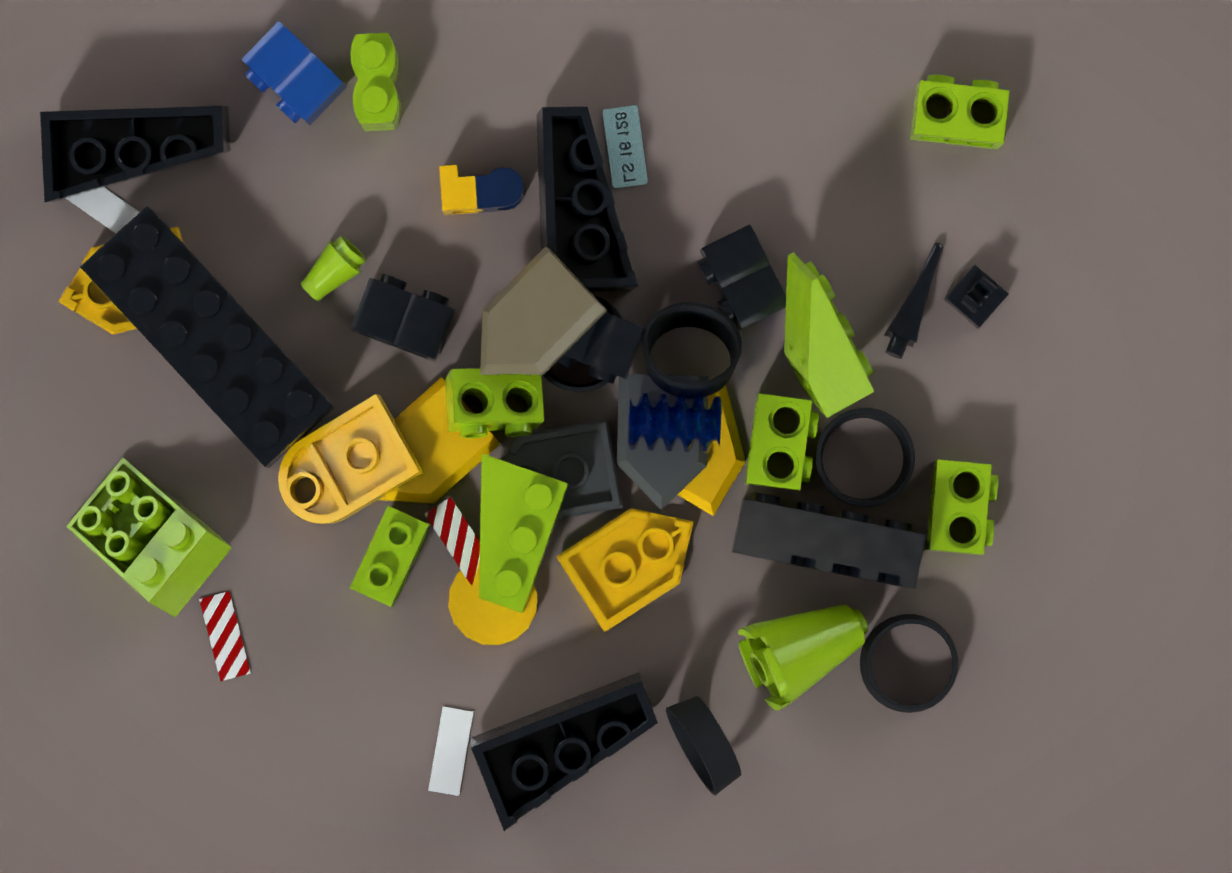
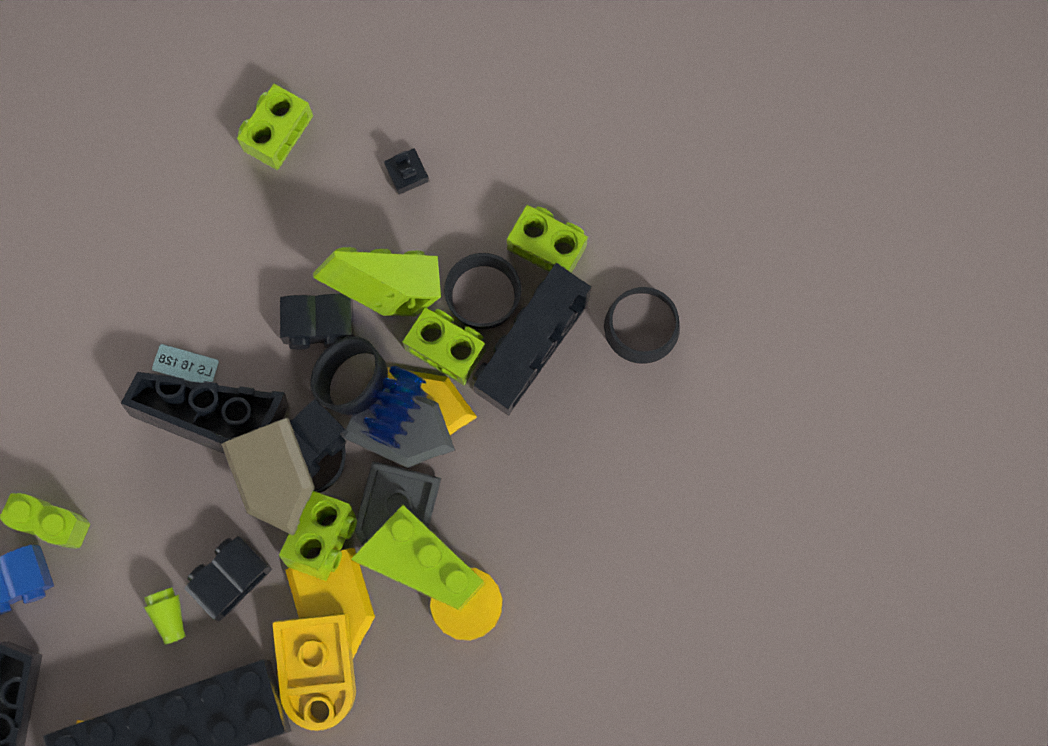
camera: 65 degrees left, 10 degrees down
(390, 556) = (398, 665): lime brick -> none
(450, 751) = (564, 686): white sticker -> none
(456, 536) = (407, 609): sticker -> none
(479, 194) = (164, 481): leg -> none
(558, 745) = (594, 599): black wedge -> none
(627, 563) = (483, 493): yellow tile -> none
(704, 744) = (639, 490): black tyre -> none
(800, 650) = (600, 396): lime cone -> none
(907, 322) = (402, 223): black piece -> none

